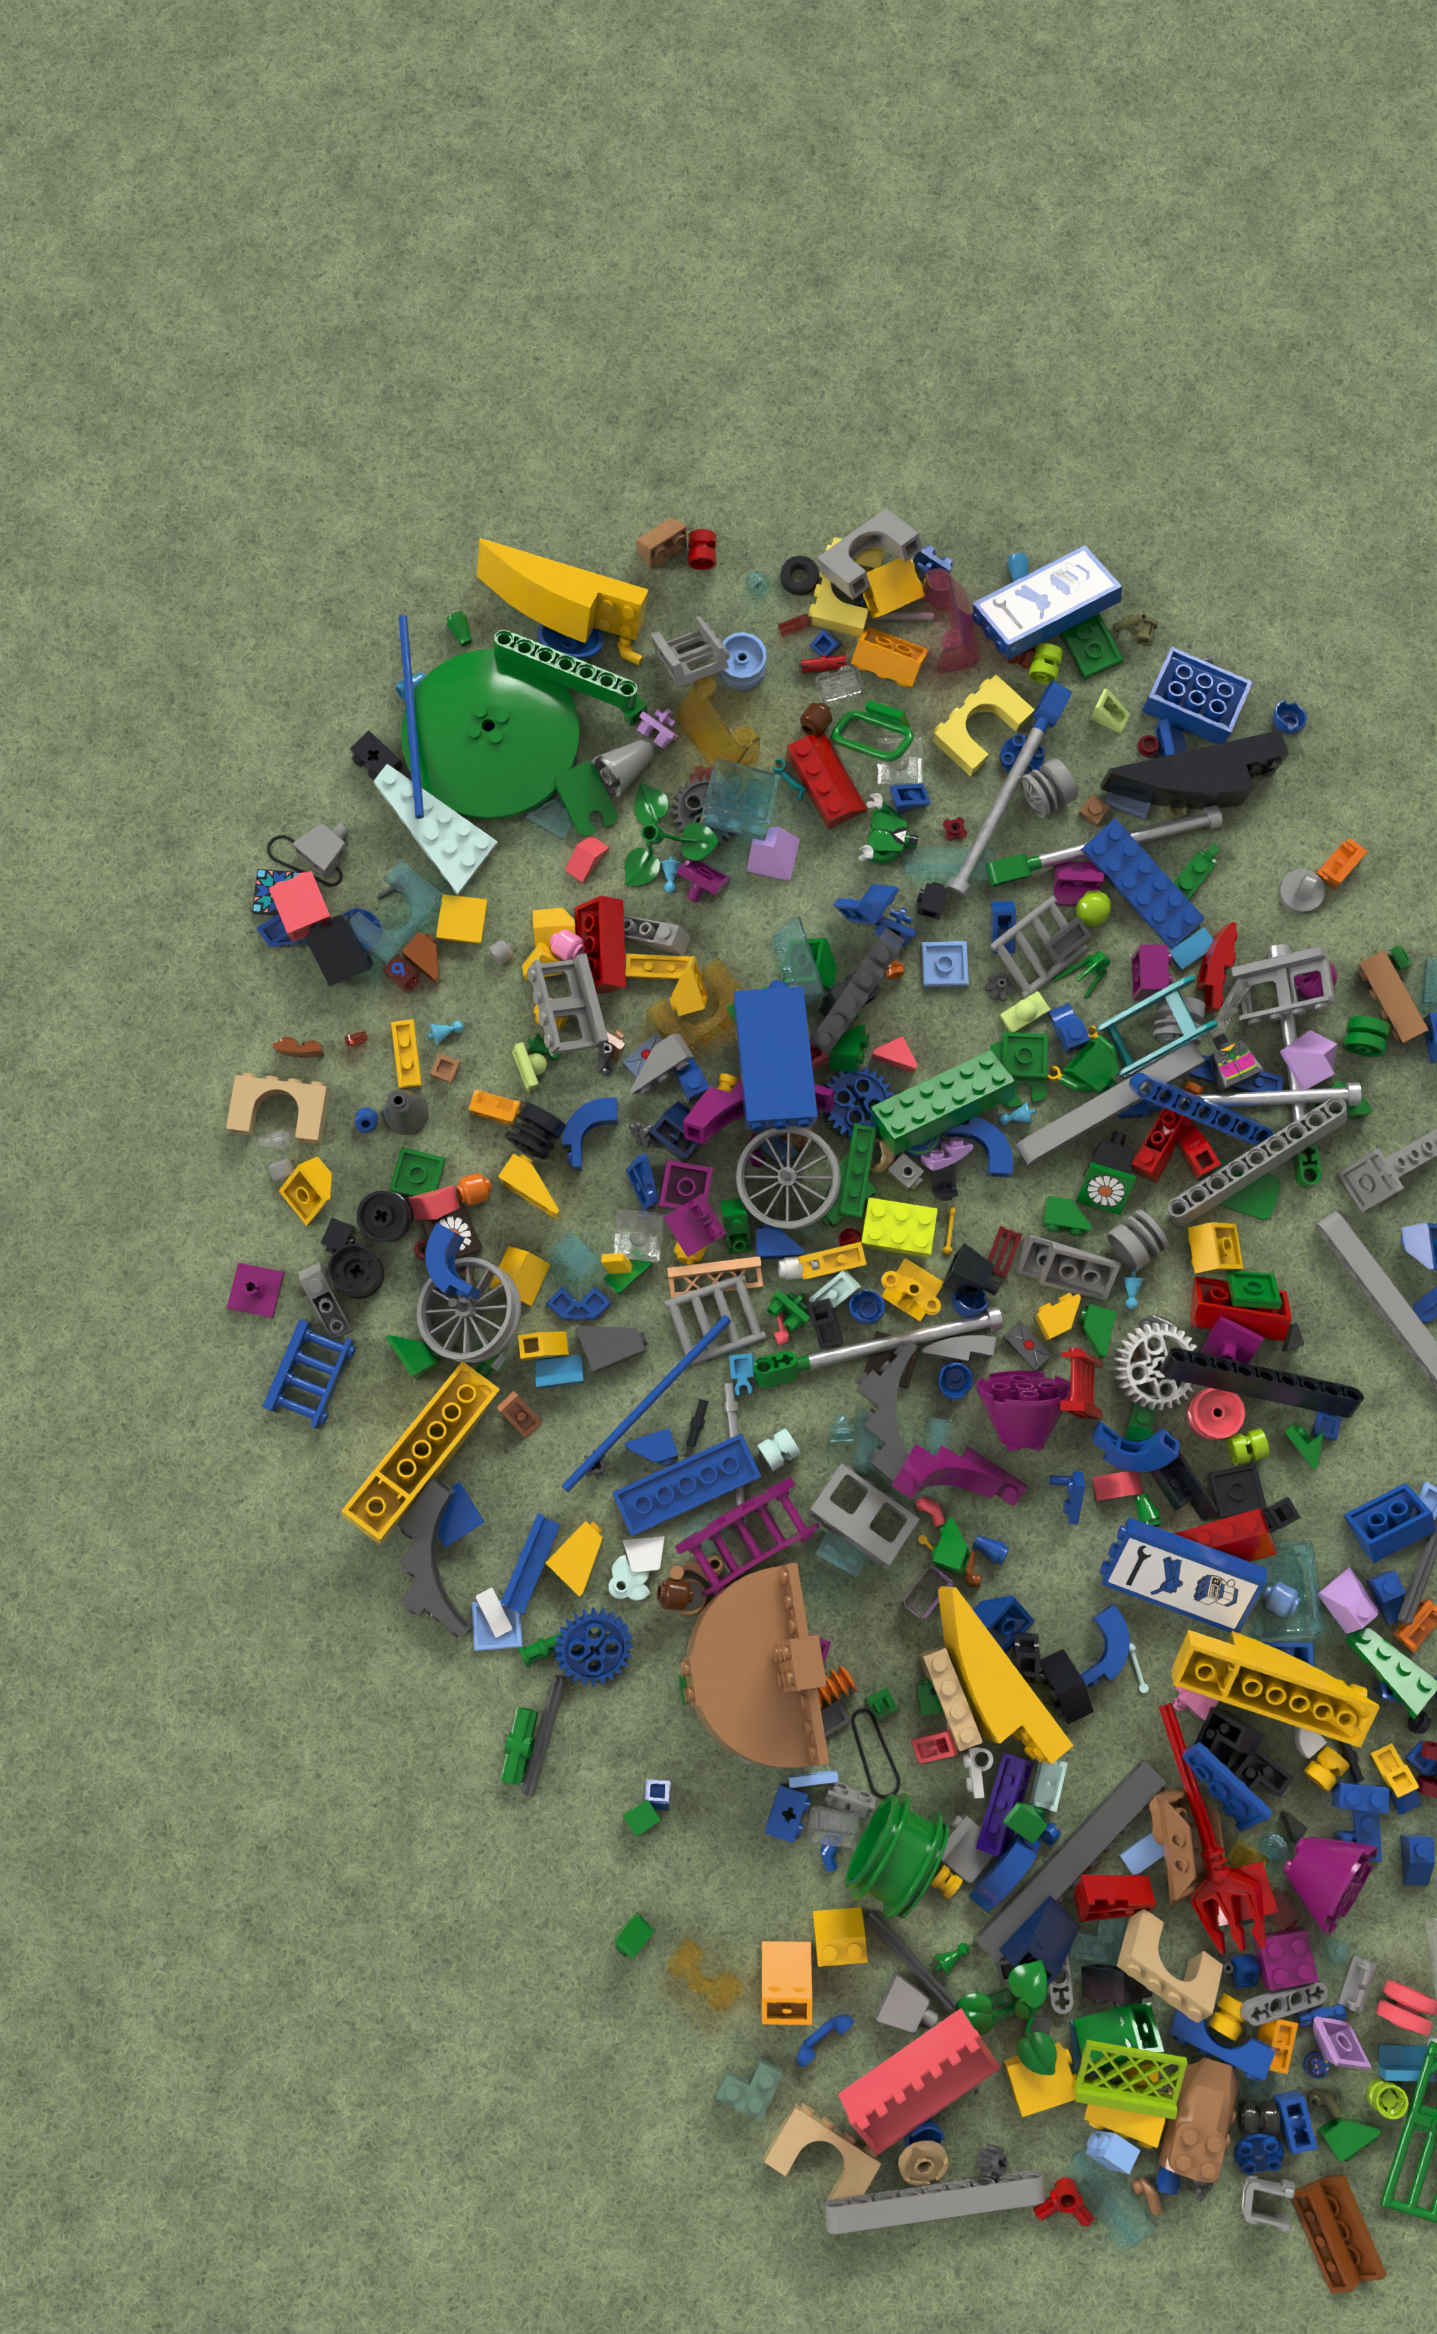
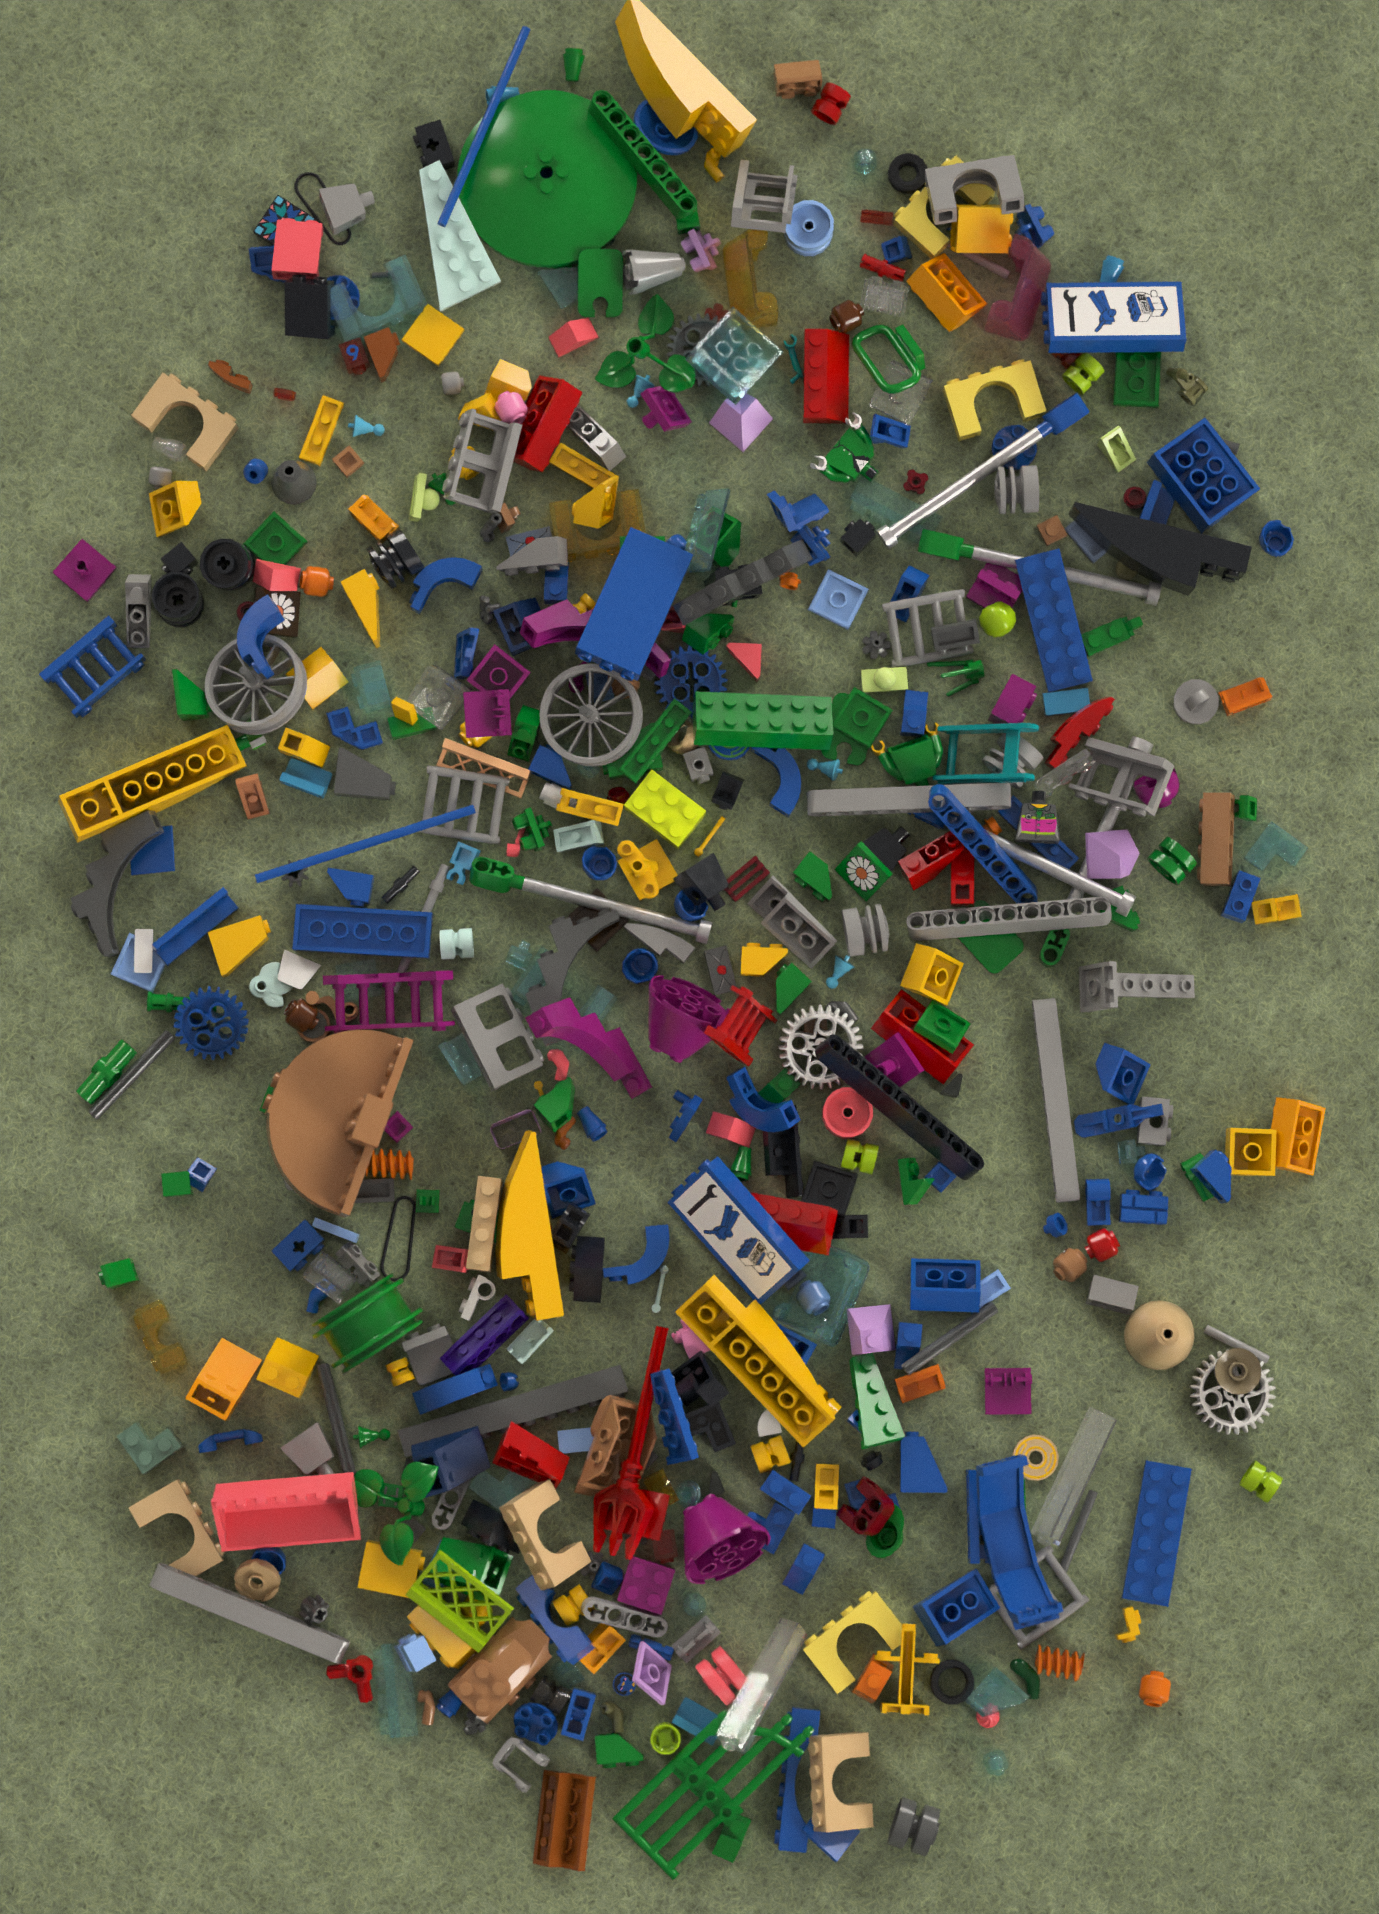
camera: 30 degrees right, 5 degrees up
(825, 1323) = (556, 857): black slope -> none
(950, 1152) = (749, 768): lavender slope -> none
(1027, 1821) = (492, 1356): green slope -> none

